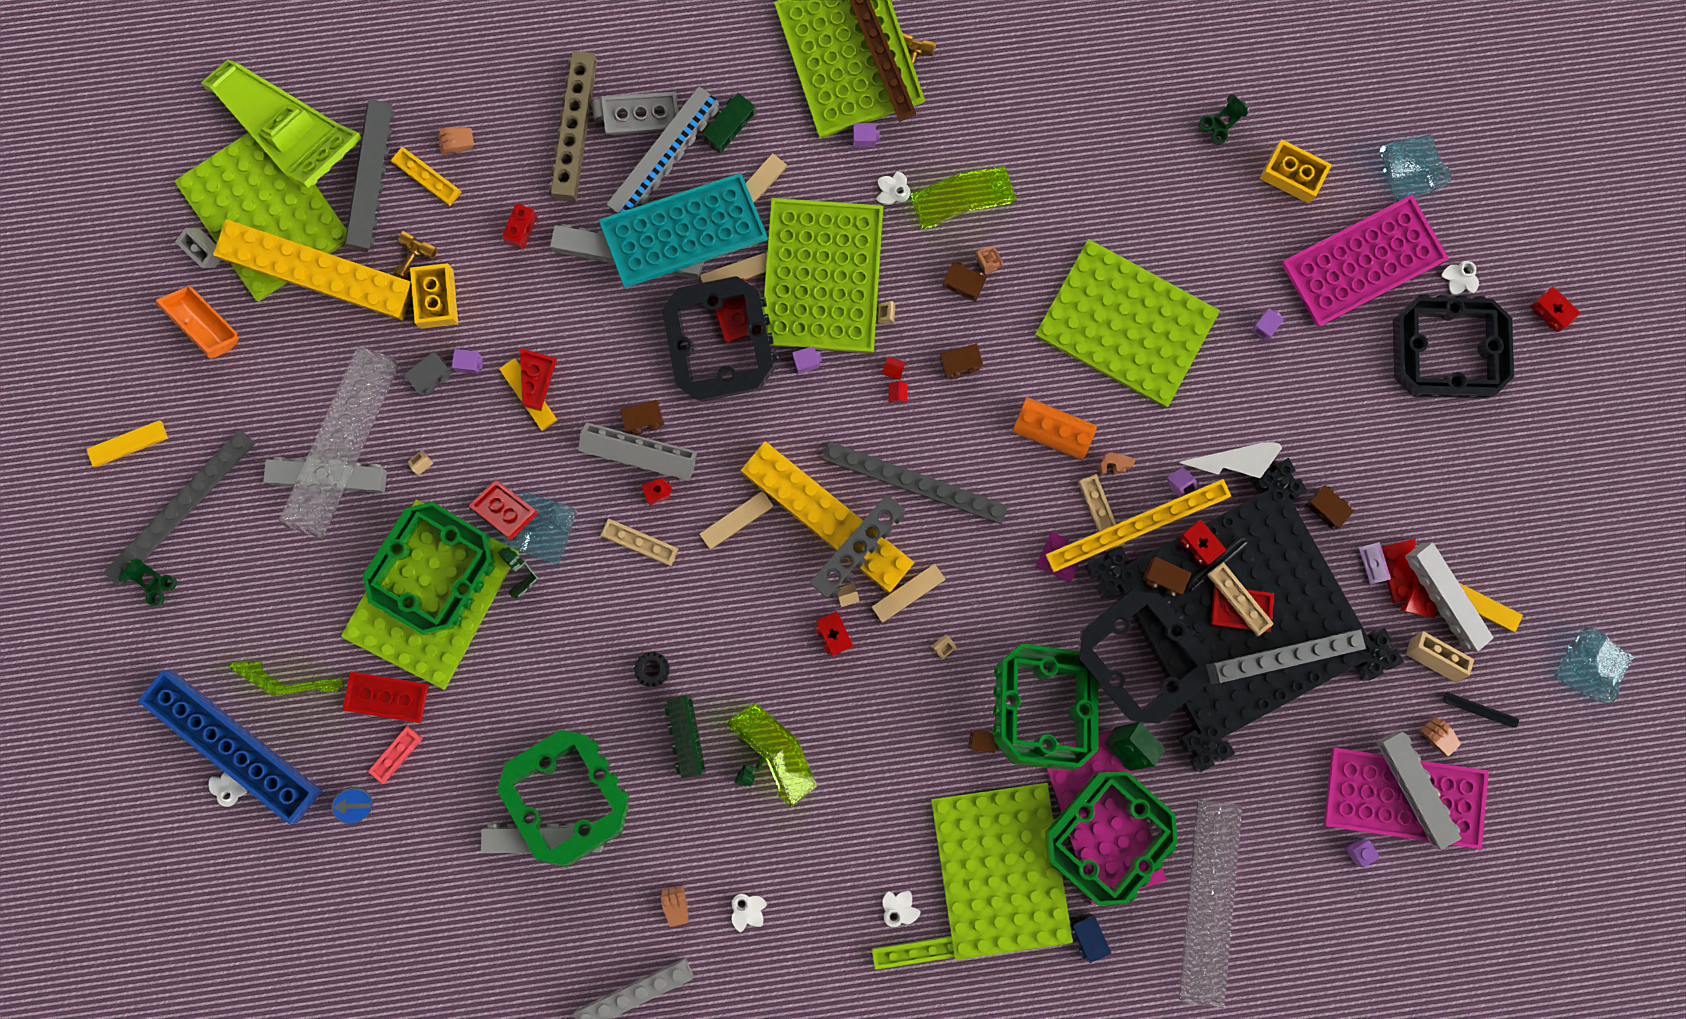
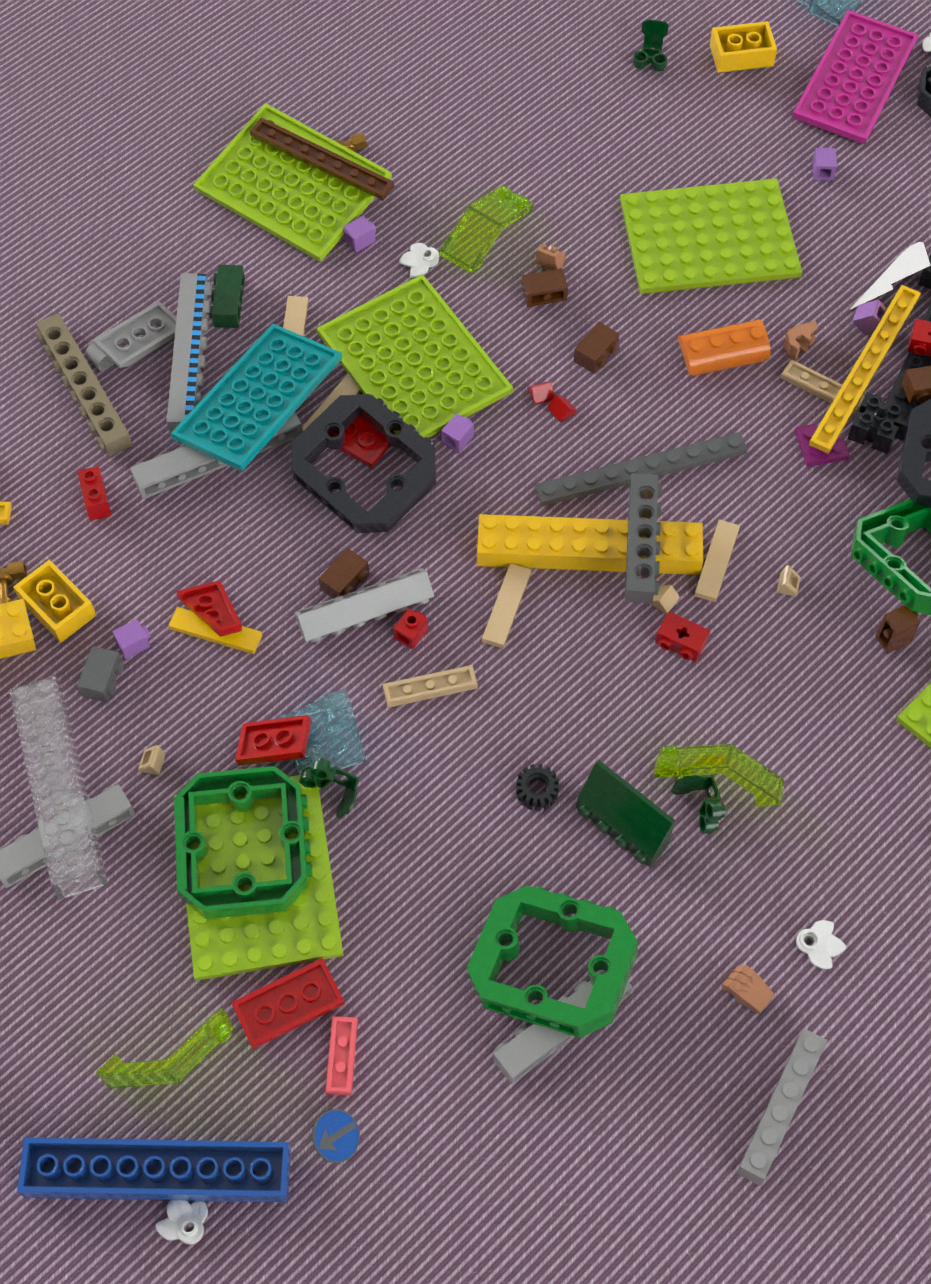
camera: 30 degrees left, 20 degrees down
(886, 312) = (497, 353): tan slope -> none

